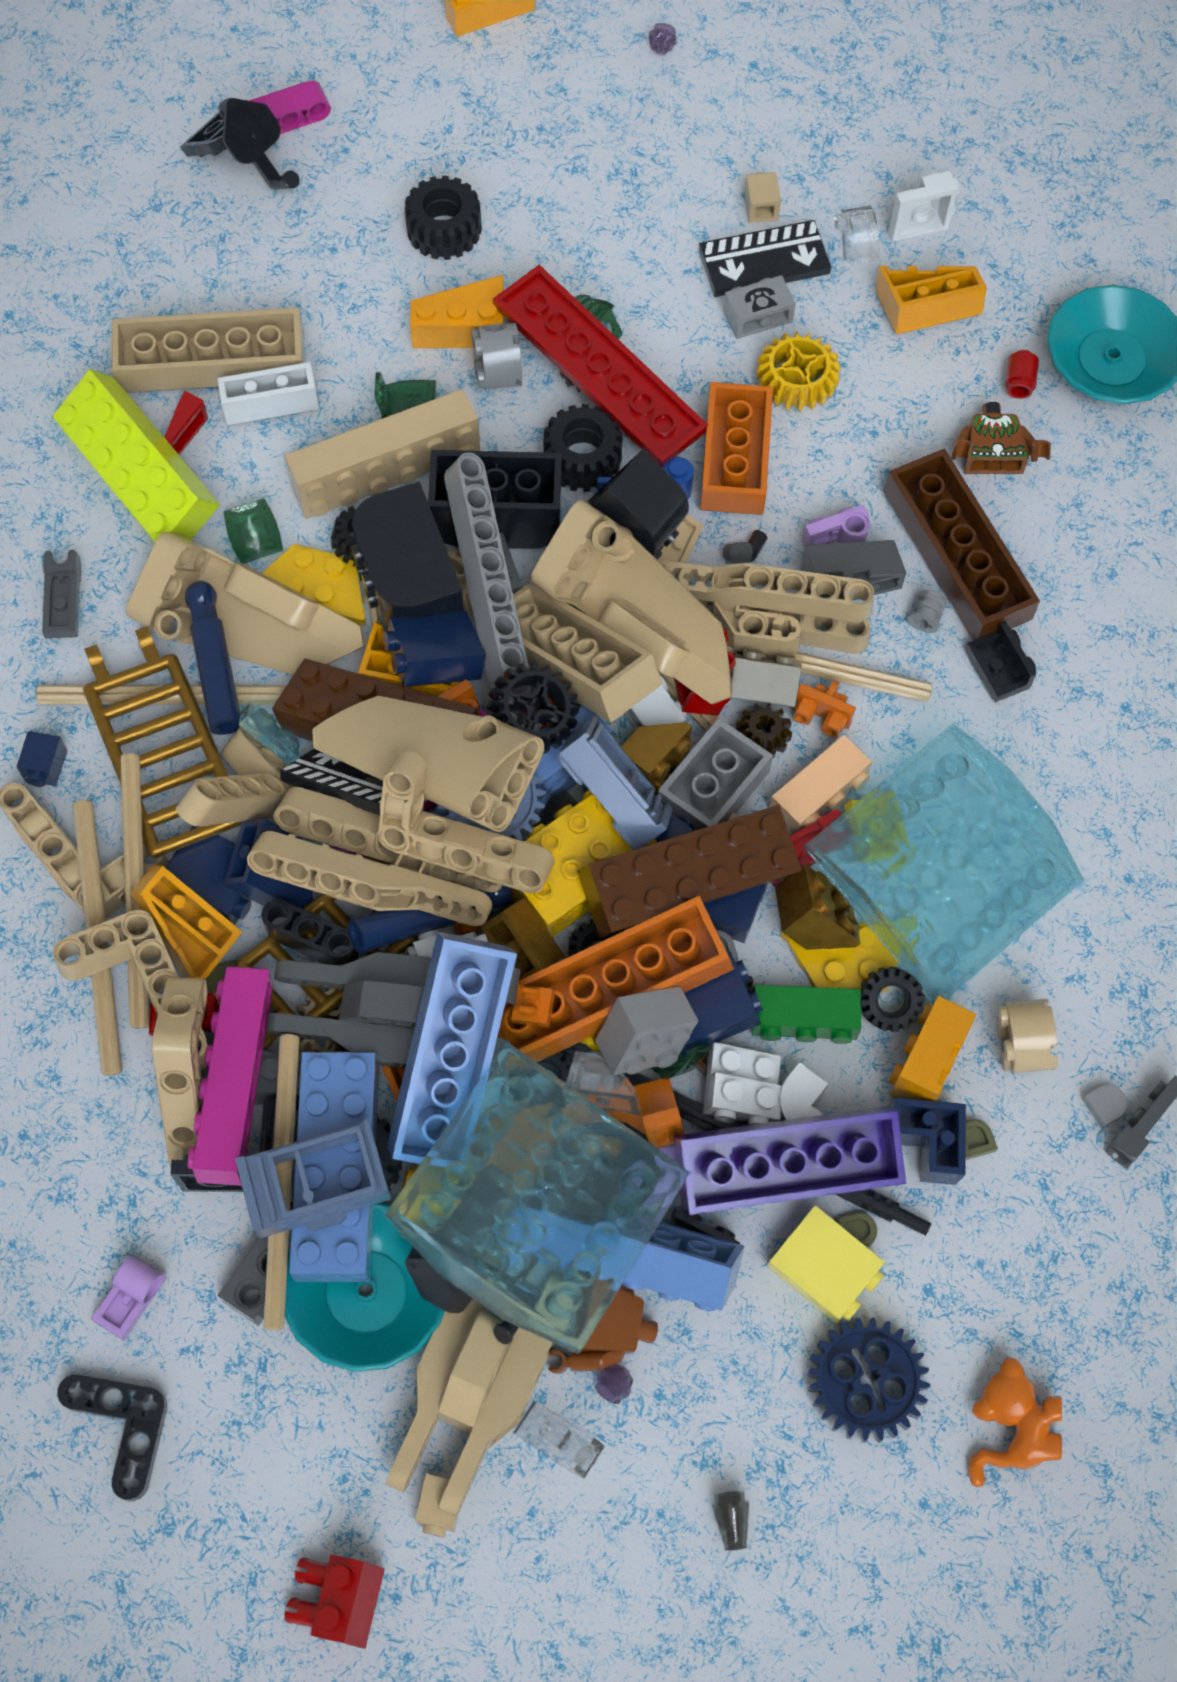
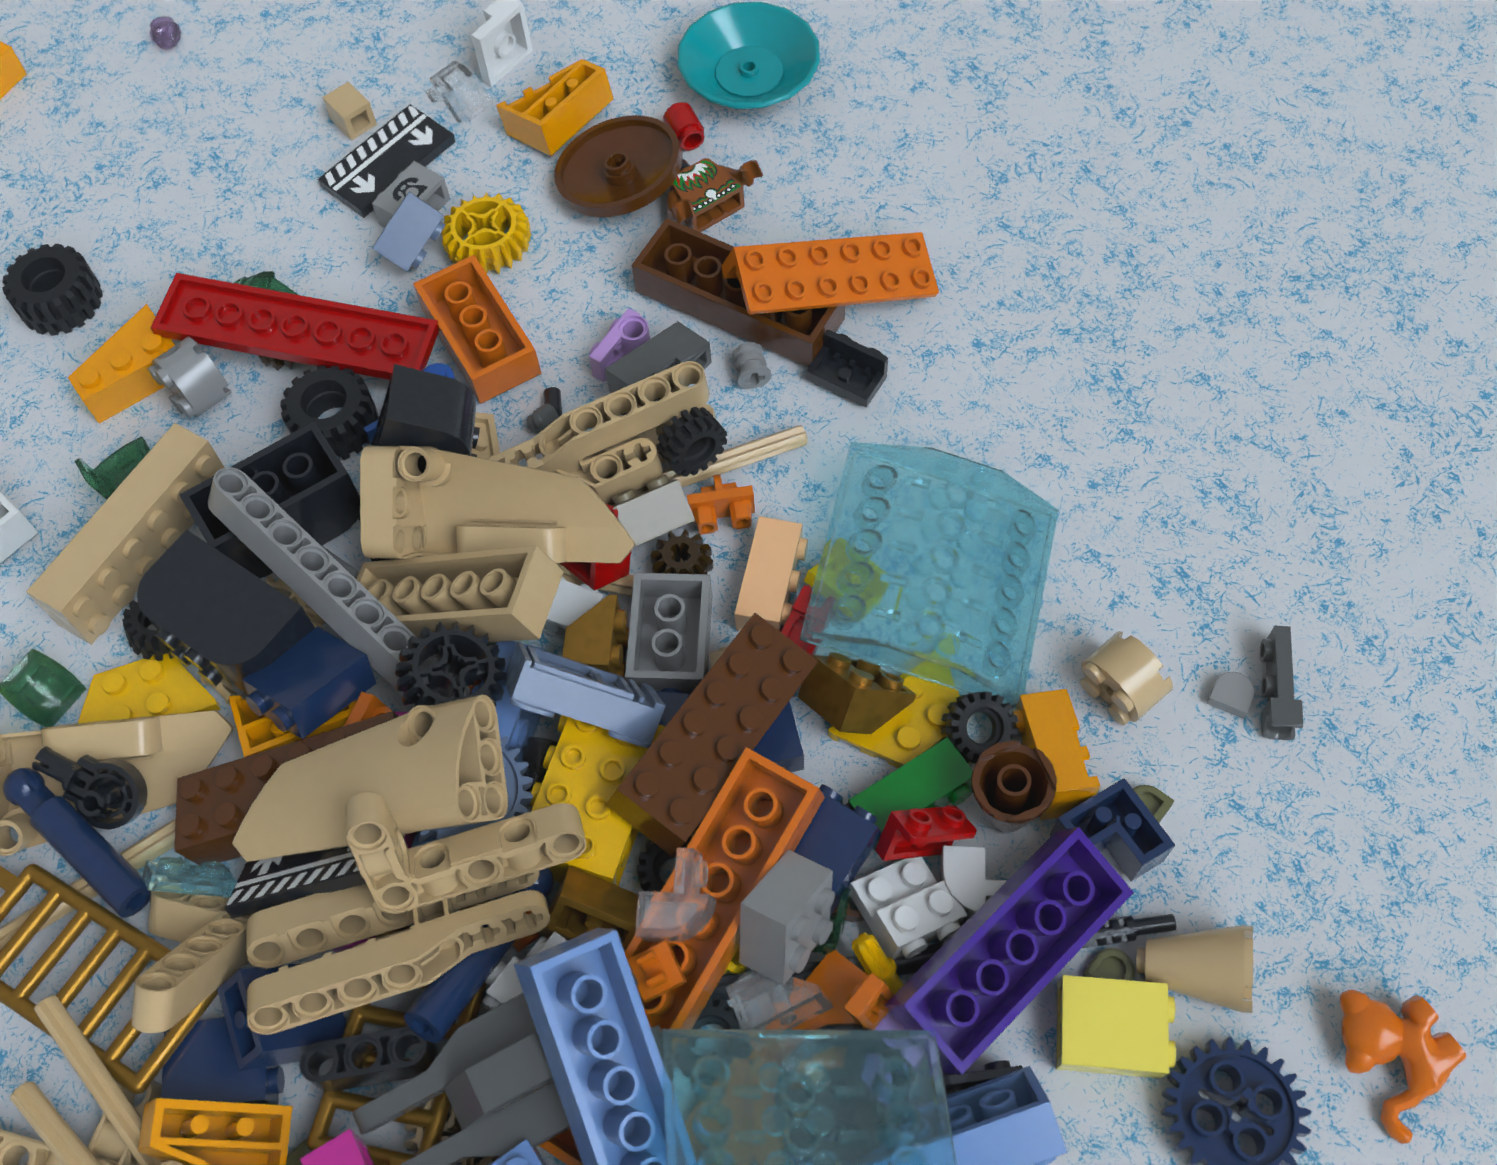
camera: 30 degrees left, 5 degrees down
(248, 628) = (97, 786): none -> black pin
(577, 977) = (678, 913): none -> clear brick
(690, 1106) = (875, 961): none -> yellow axle
(736, 335) = (409, 231): none -> sand blue brick
(790, 1042) = (922, 832): none -> red bracket
(833, 644) = (692, 441): none -> black tyre
(874, 1050) = (1013, 784): none -> reddish brown cone
(924, 1271) = (1204, 965): none -> tan cone
(941, 378) = (618, 166): none -> reddish brown dish
(1043, 578) = (832, 272): none -> orange bracket

